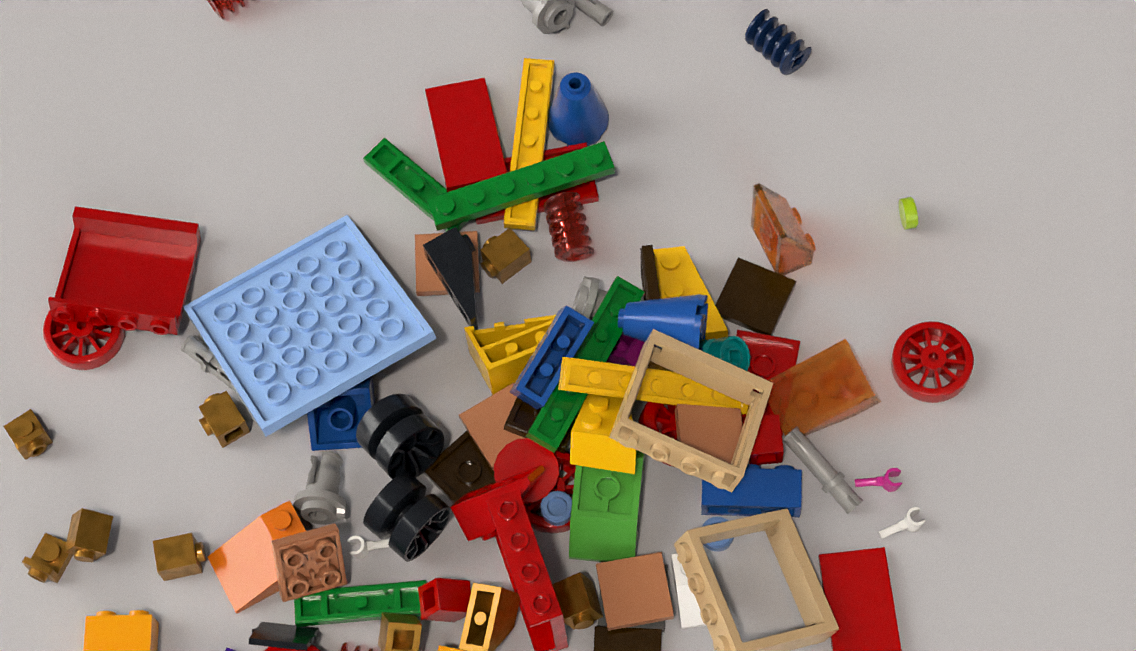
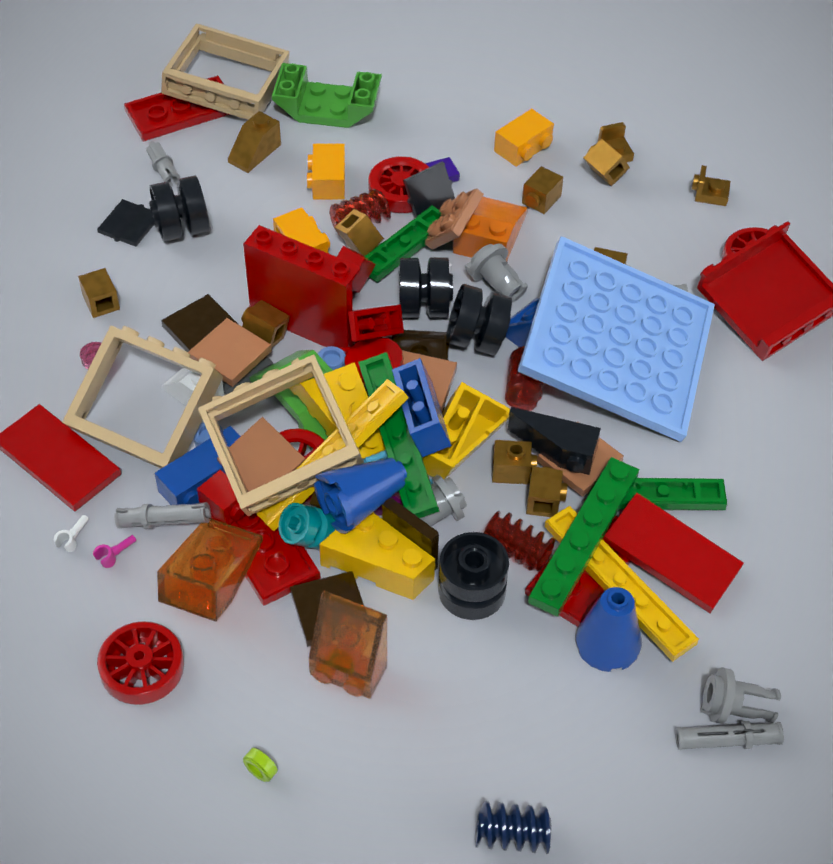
camera: 130 degrees right, 15 degrees down
(409, 367) = (521, 390): none -> clear red piece
(502, 299) = (513, 462): none -> pearl gold brick
(632, 218) = (473, 575): none -> black wheel

